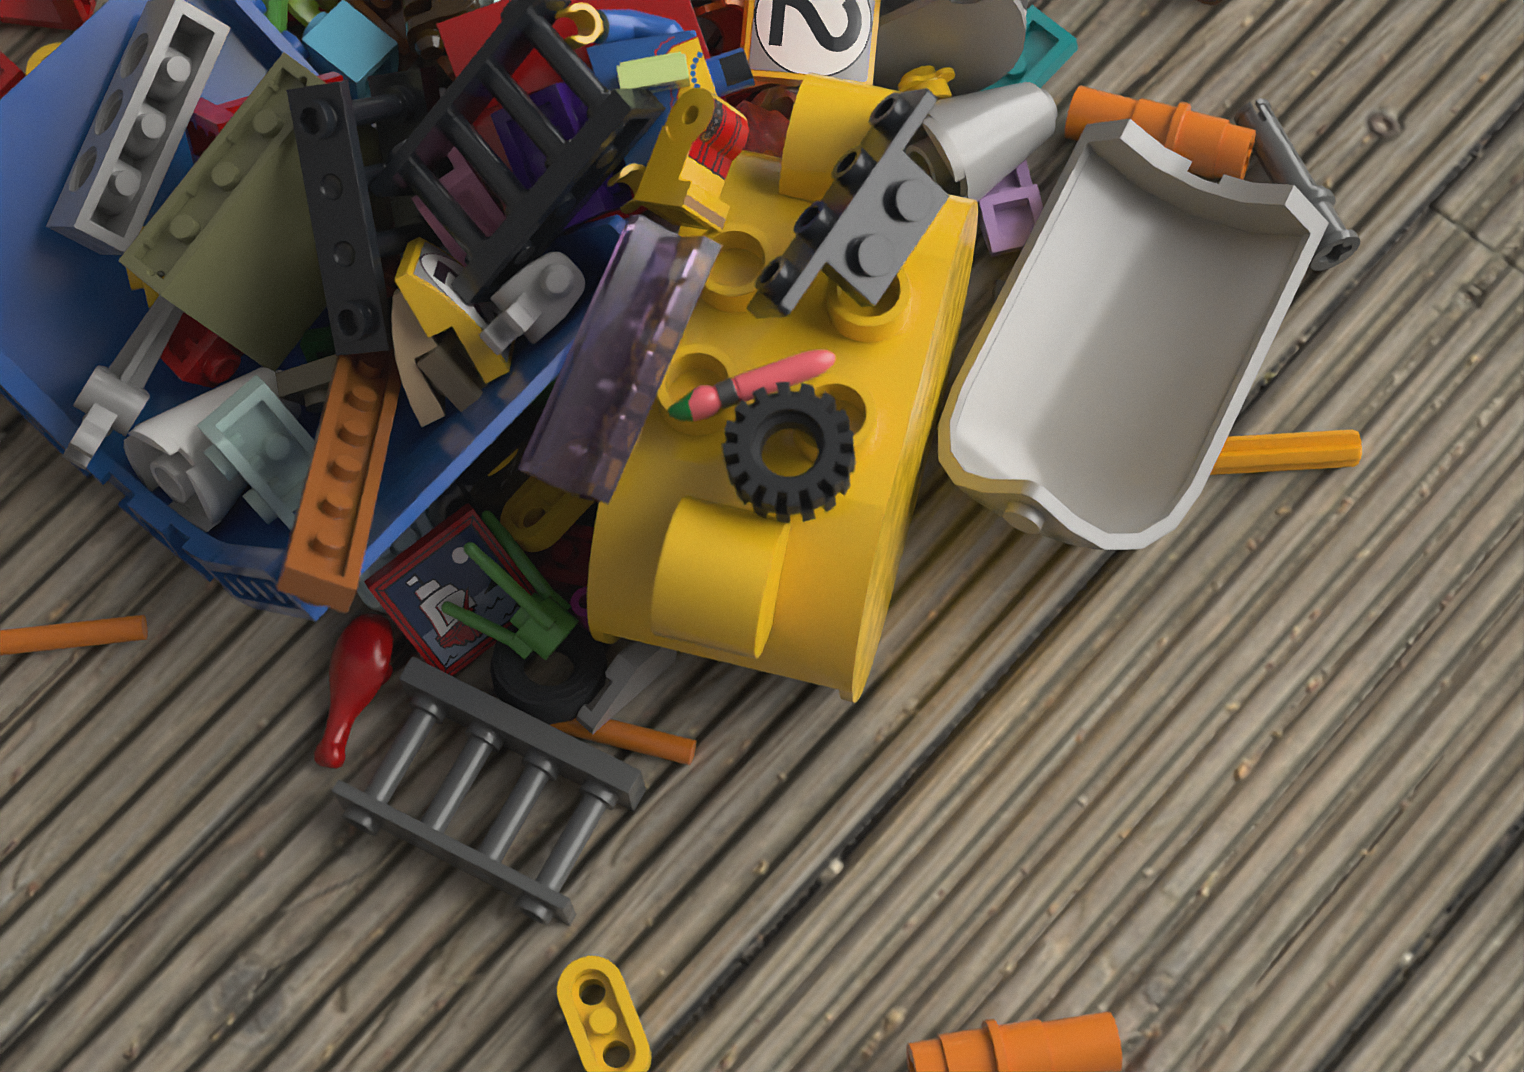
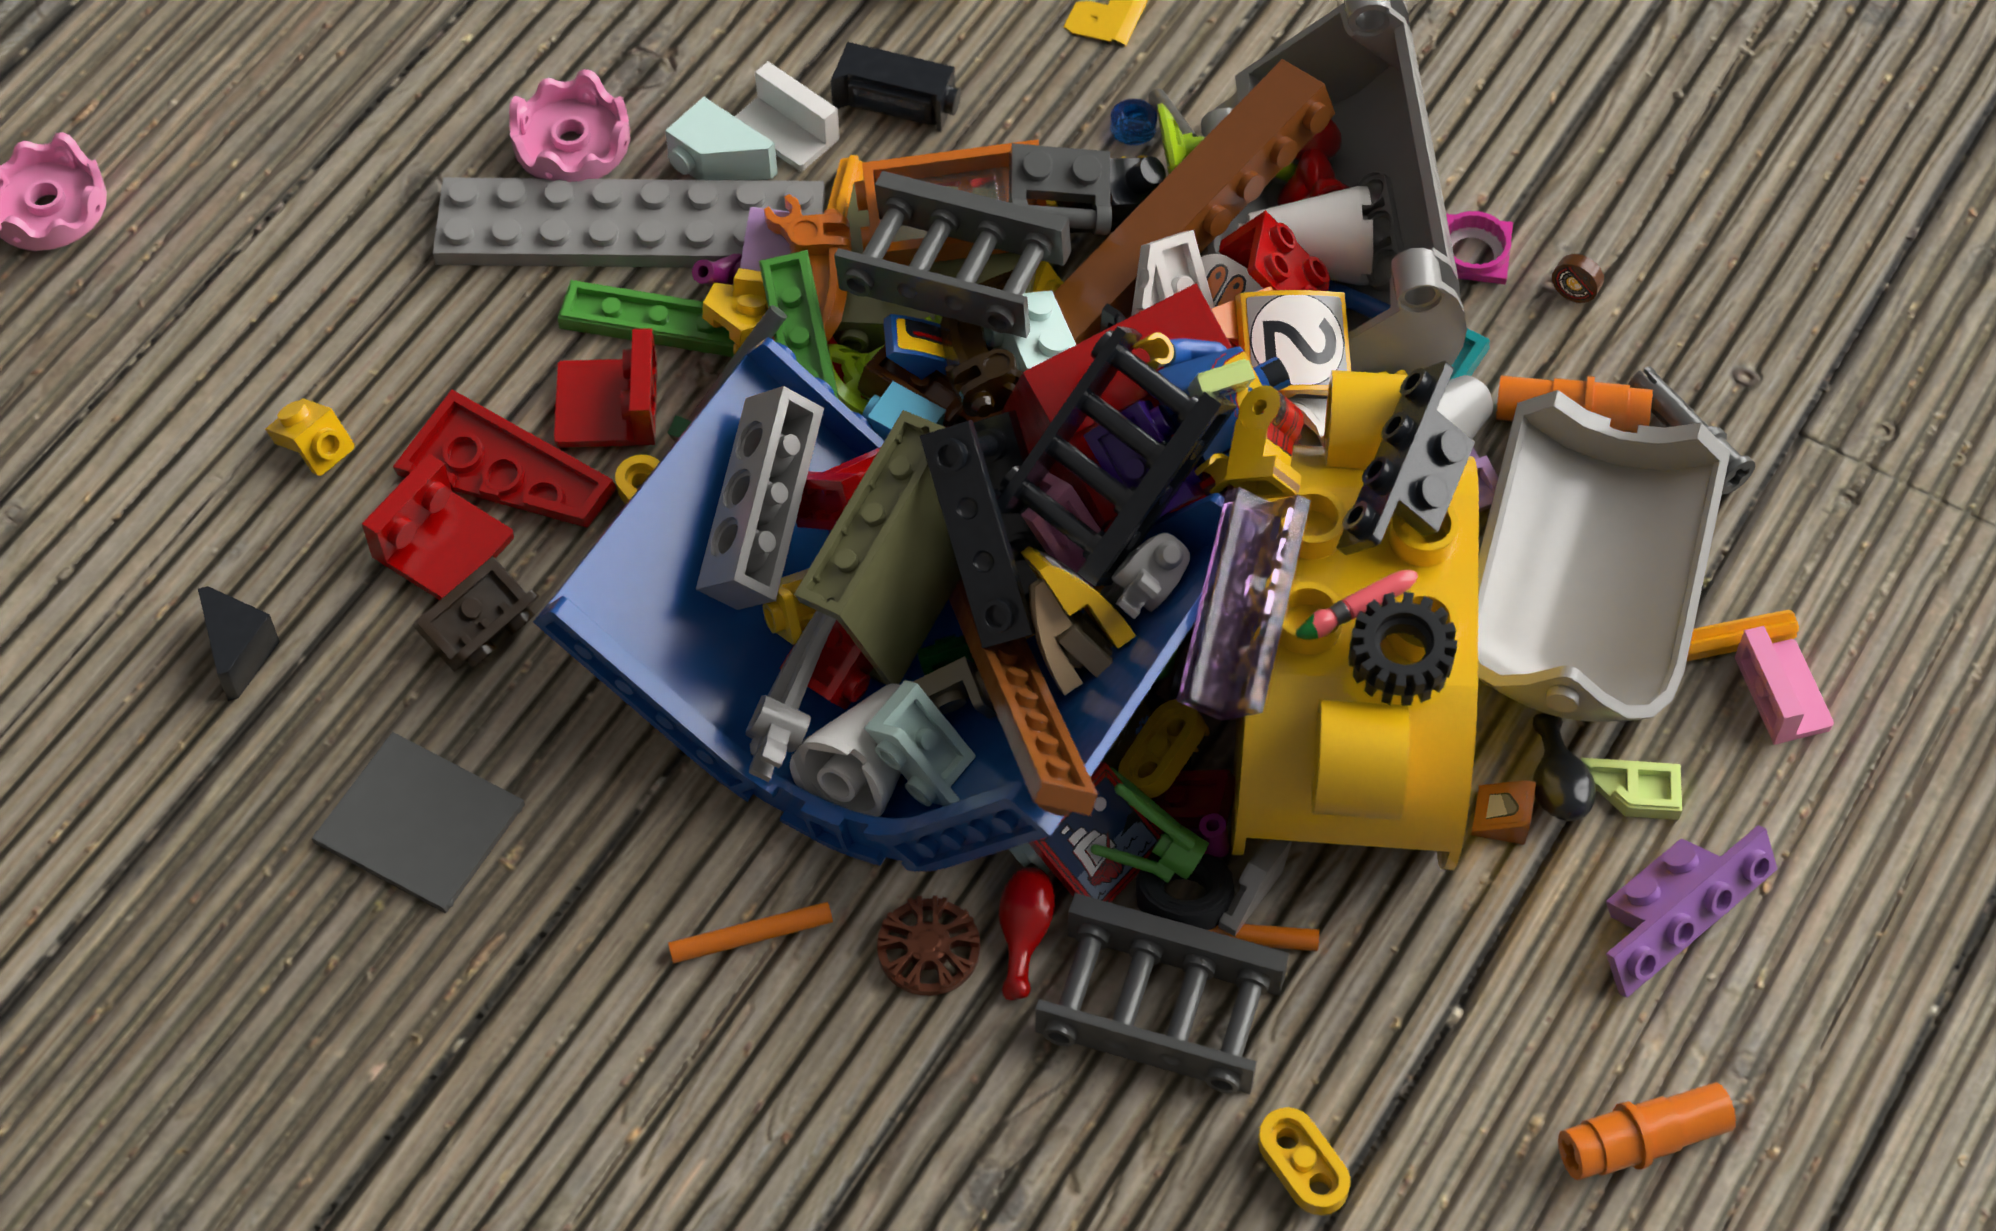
camera: 15 degrees left, 10 degrees down
(244, 686) = (928, 946): none -> copper wheel
(950, 629) = (1504, 811): none -> dark orange slope
(1027, 603) = (1562, 780): none -> black piece
(1117, 622) = (1639, 787): none -> yellowish green tile
(1128, 775) = (1680, 900): none -> medium lavender bracket
(1325, 525) = (1782, 687): none -> bright pink panel

